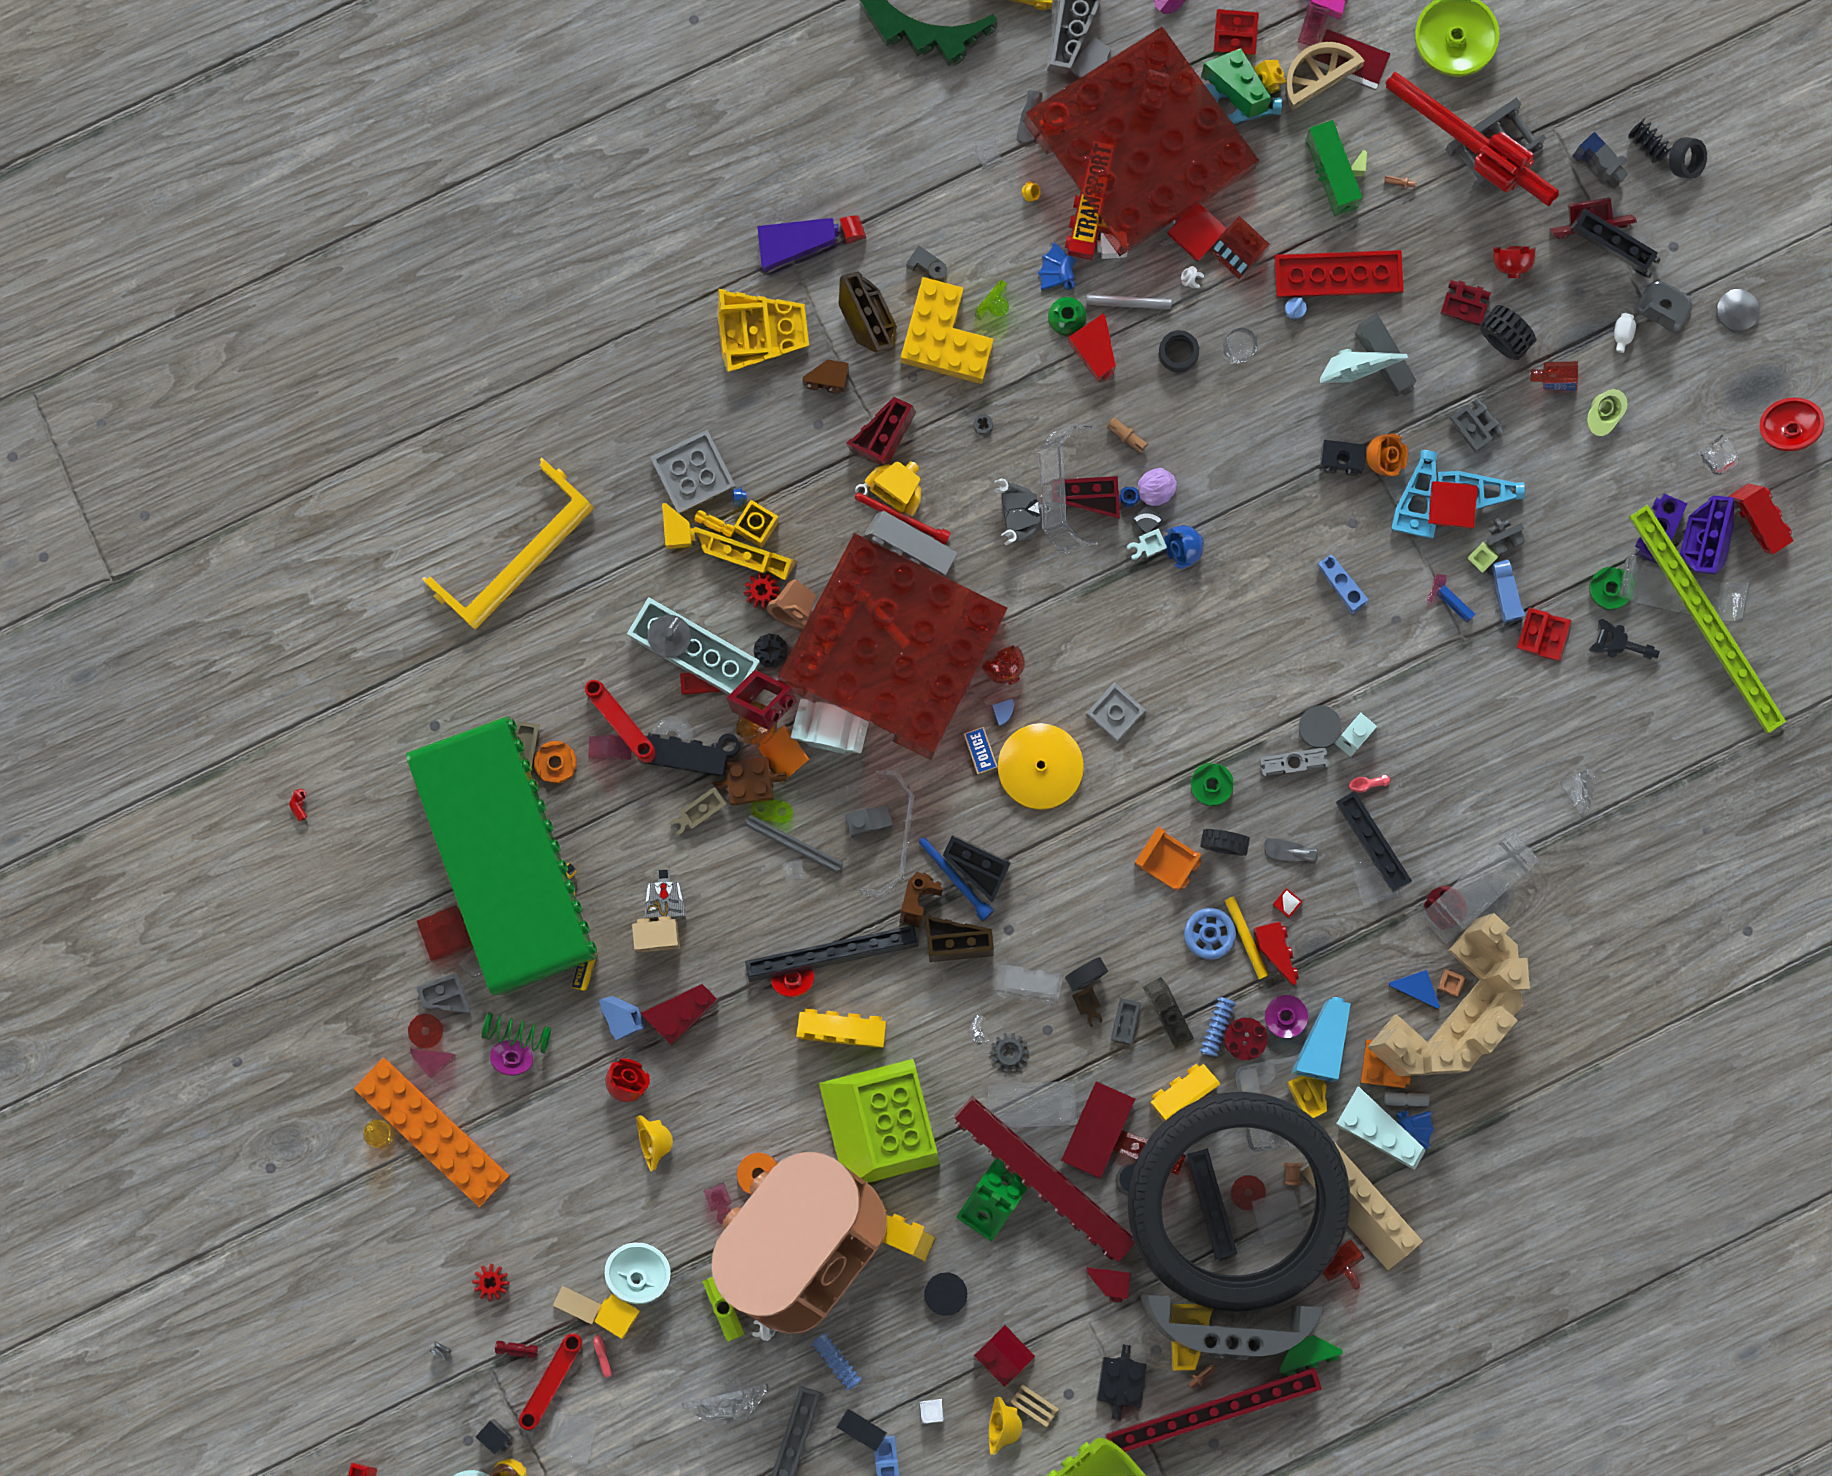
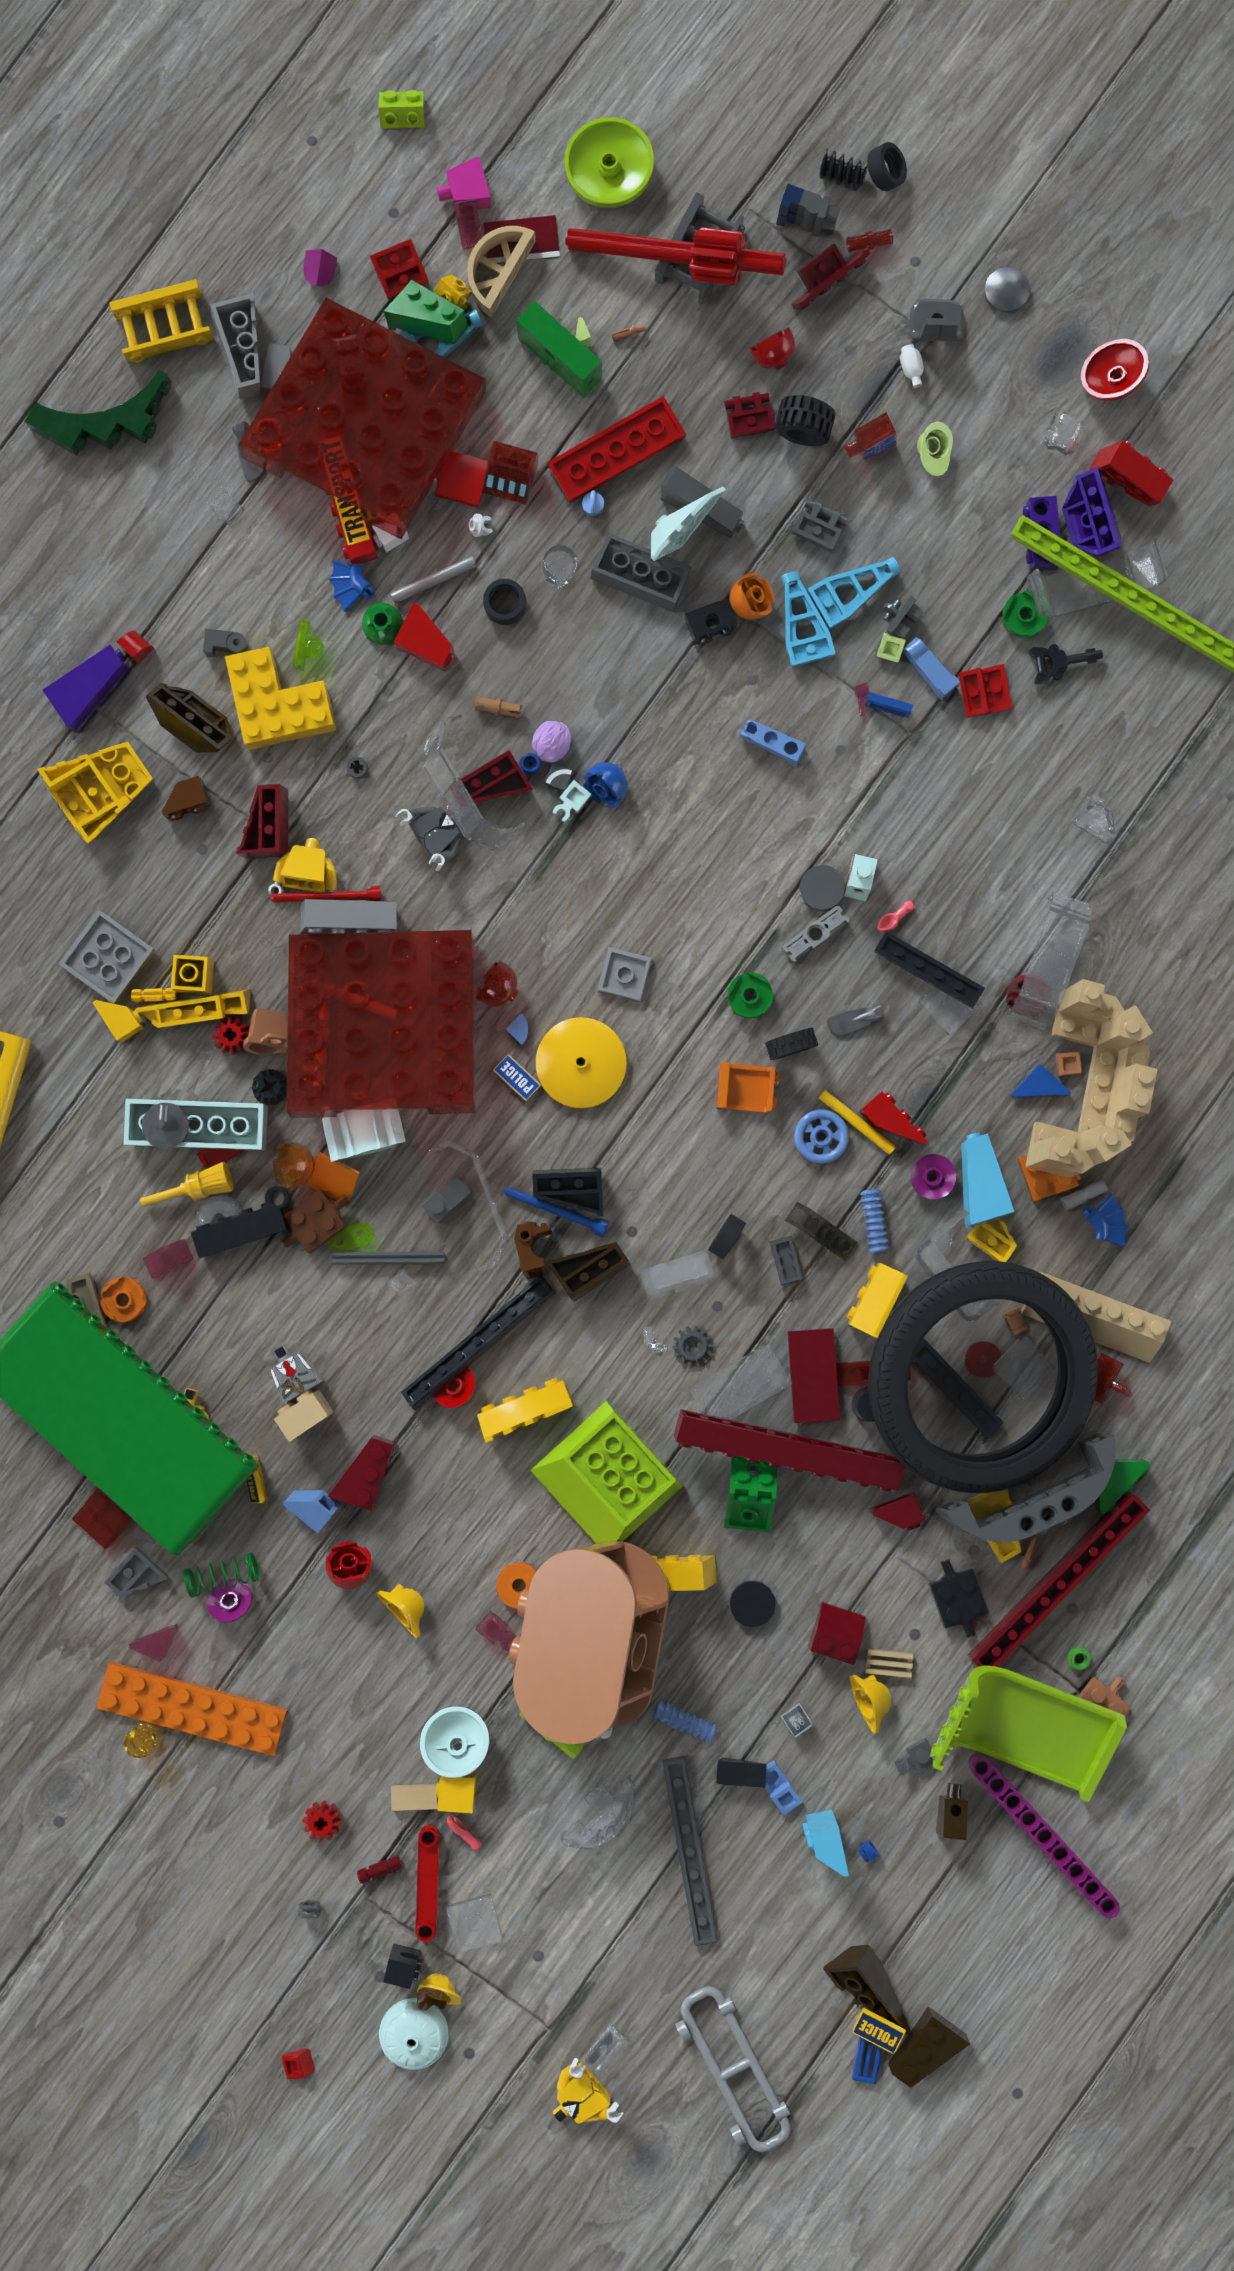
camera: 25 degrees left, 5 degrees up
(415, 1031) = (128, 1624): clear red piece -> none
(619, 721) = (162, 1230): red piece -> none
(667, 699) = (197, 1185): none -> yellow piece
(700, 810) = (283, 1273): dark tan plate -> none
(739, 497) = (163, 957): blue plate -> none
(750, 688) = (269, 1134): dark red window -> none
(1030, 191) = (285, 522): yellow plate -> none
(1087, 1003) = (741, 1262): dark brown plate -> none
(1236, 1036) = (917, 1215): dark red plate -> none
(1287, 903) = (878, 1069): tile -> none
(1299, 381) = (633, 571): none -> dark grey slope
(1375, 1127) = (1069, 1236): light aqua wedge -> none
(1452, 504) = (838, 612): red slope -> none
(1615, 242) = (862, 280): black hinge -> none
(1642, 210) = (869, 240): none -> clear red pin

